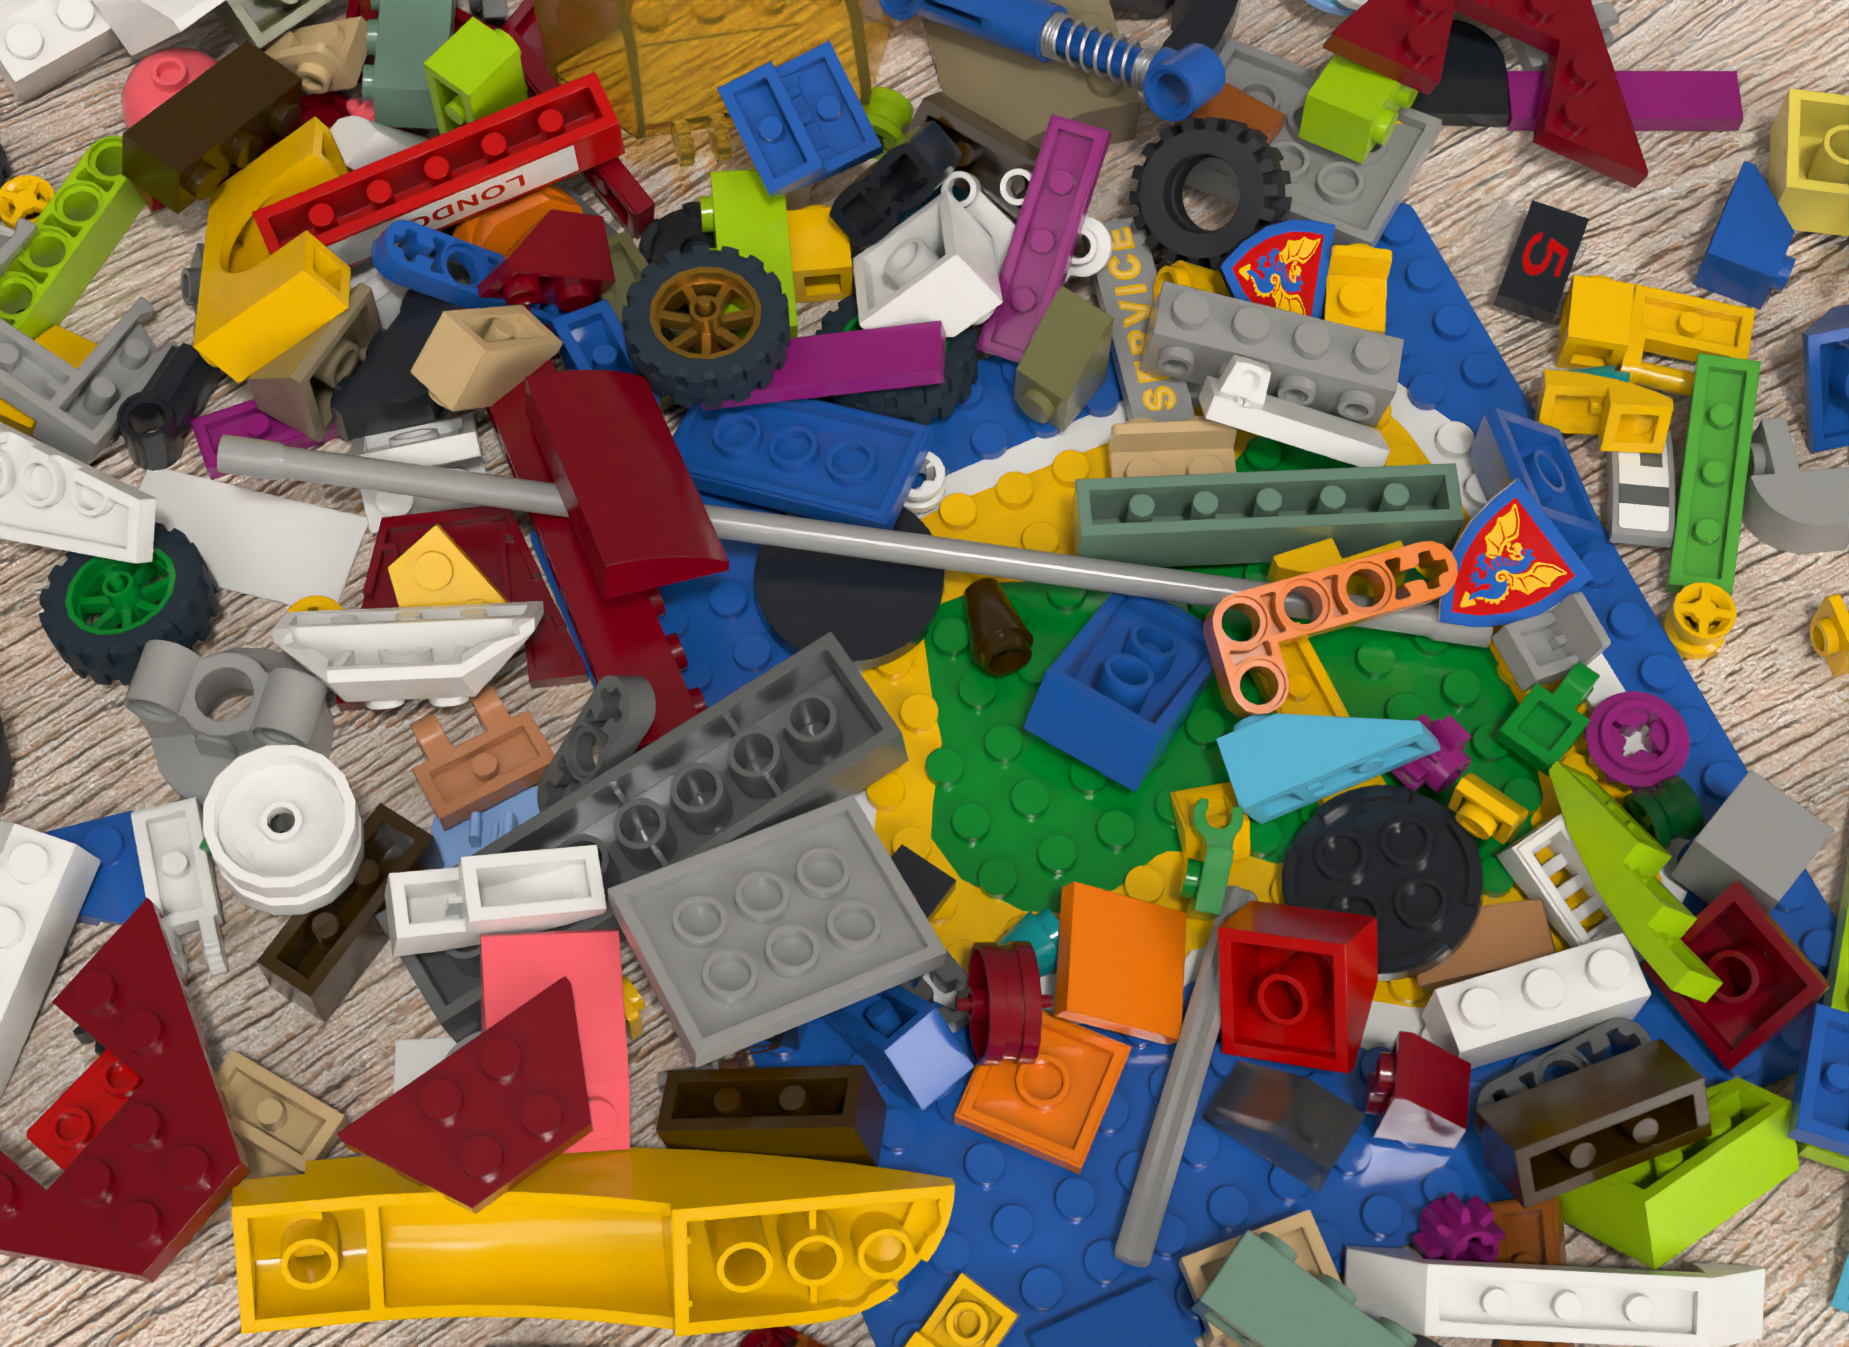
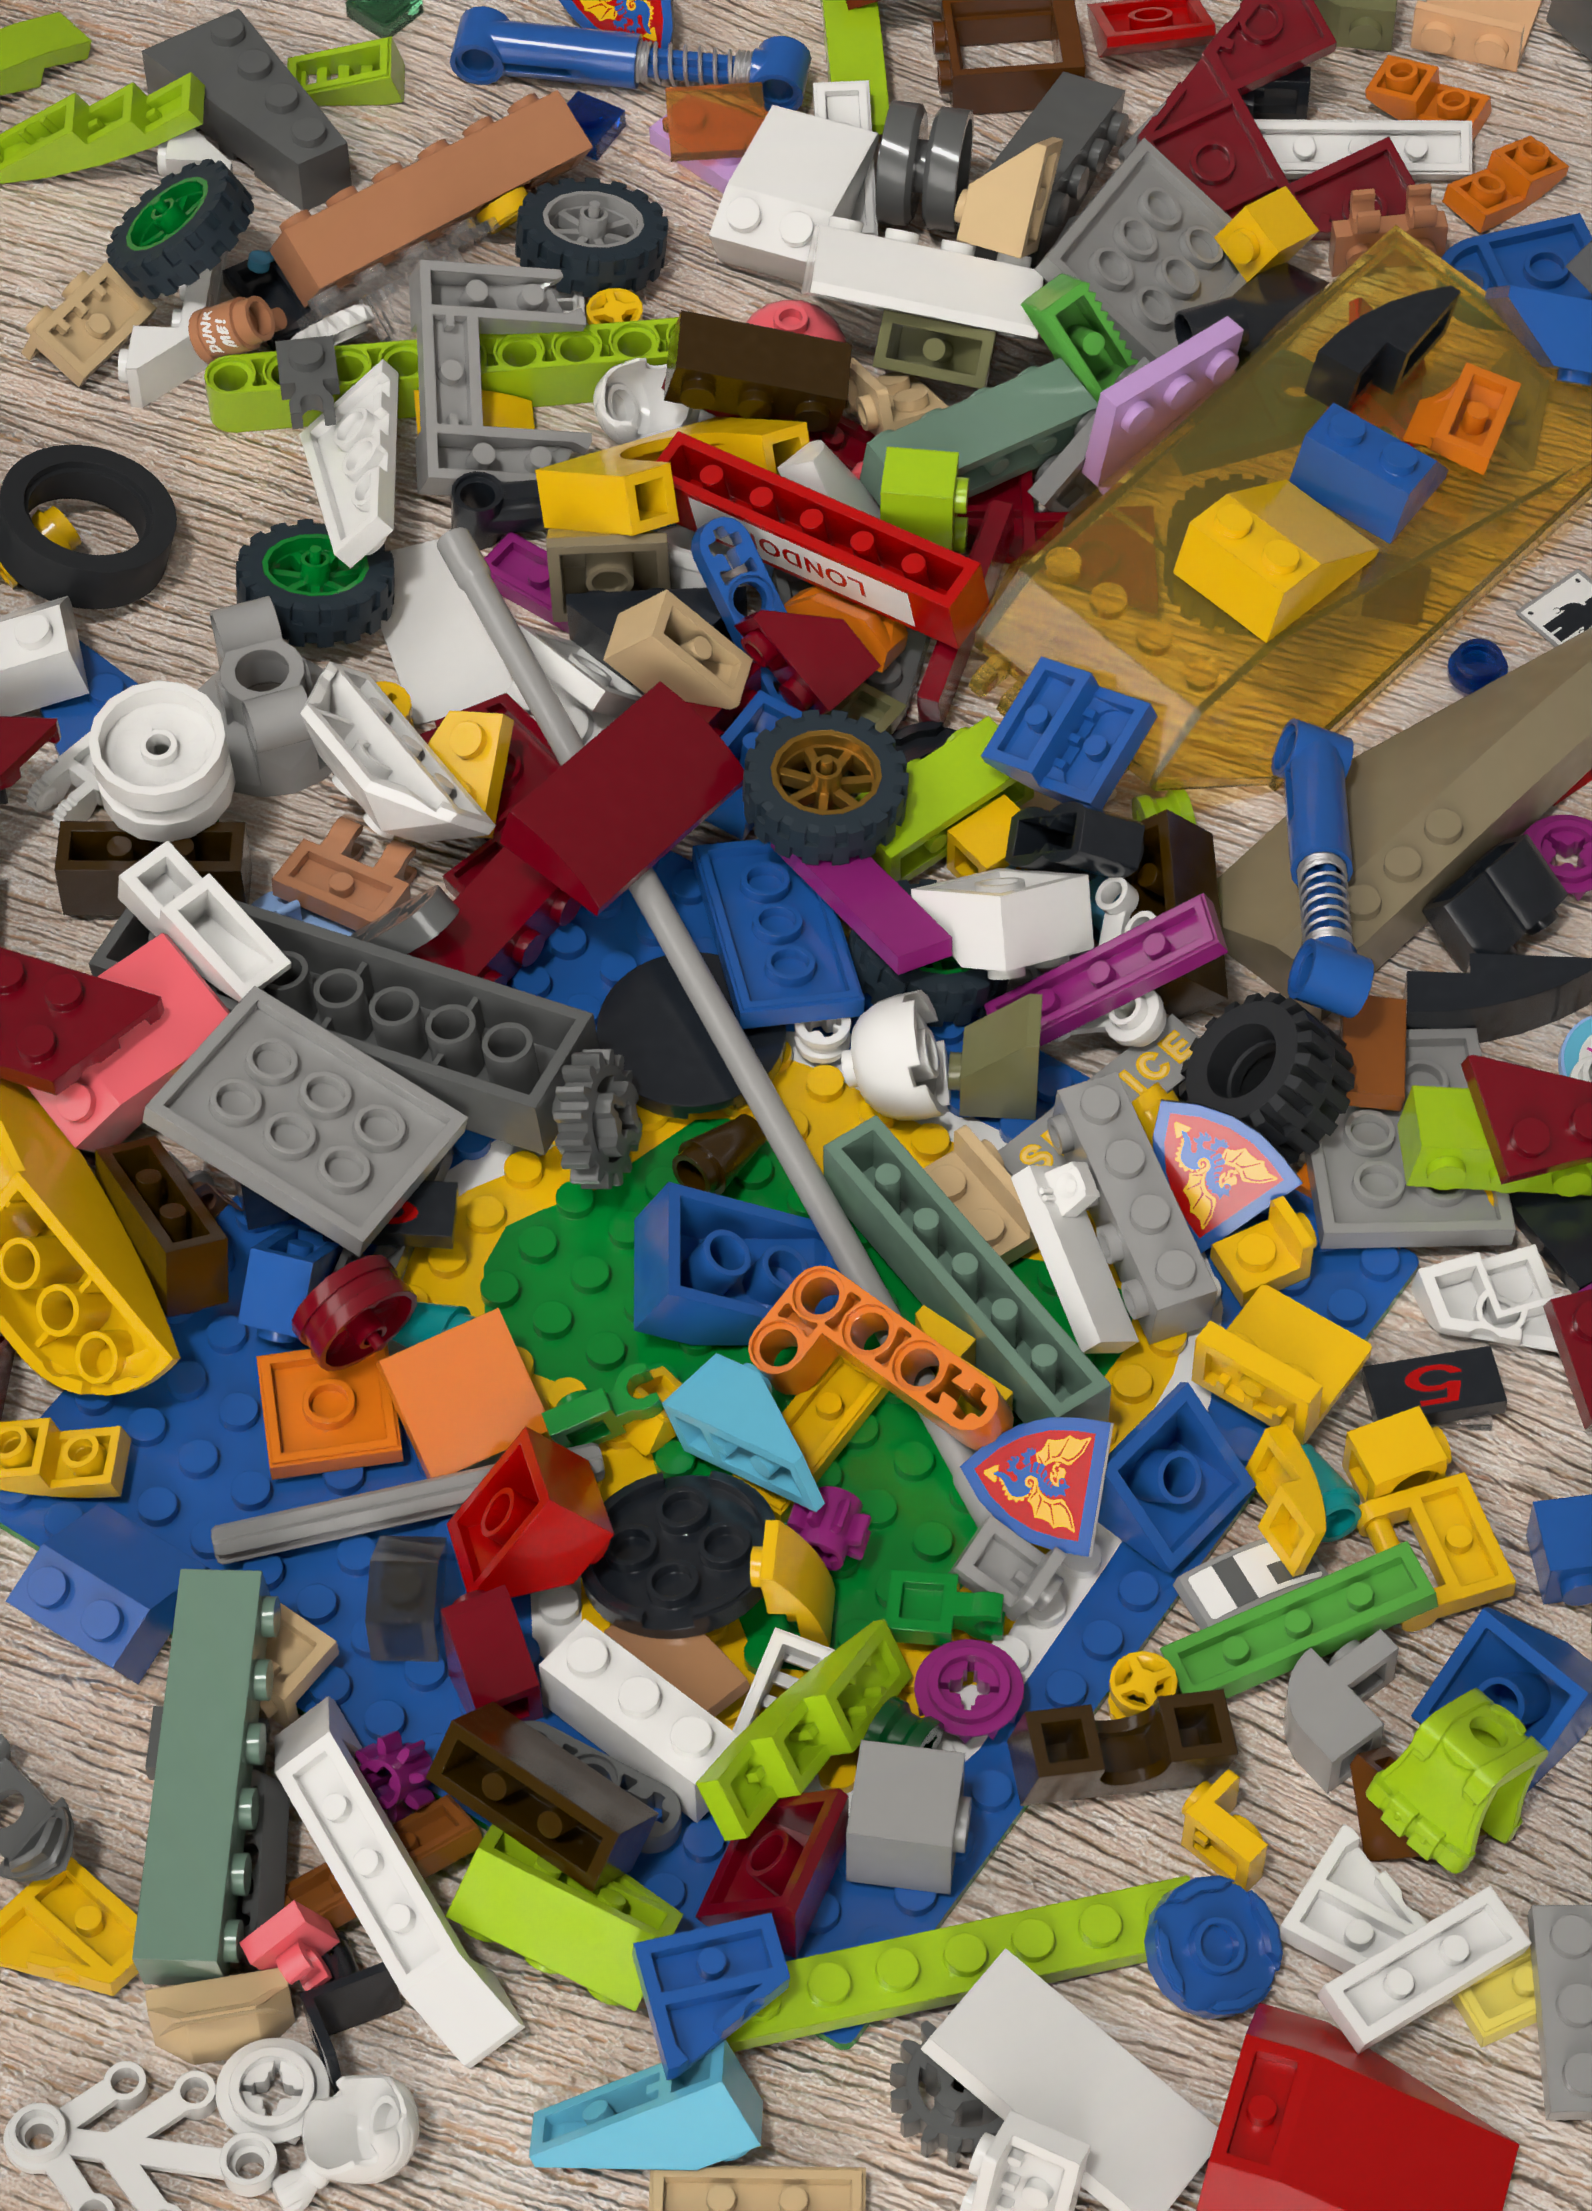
camera: 60 degrees right, 10 degrees down
(148, 245) = (633, 404): none -> white hair
(919, 695) = (597, 1119): none -> dark grey gear
(1005, 437) = (897, 1059): none -> white cylinder
(1470, 344) = (1279, 1361): none -> yellow bracket
(1483, 176) = (1489, 1298): none -> white slope
(1755, 689) = (1169, 1745): none -> dark brown arch

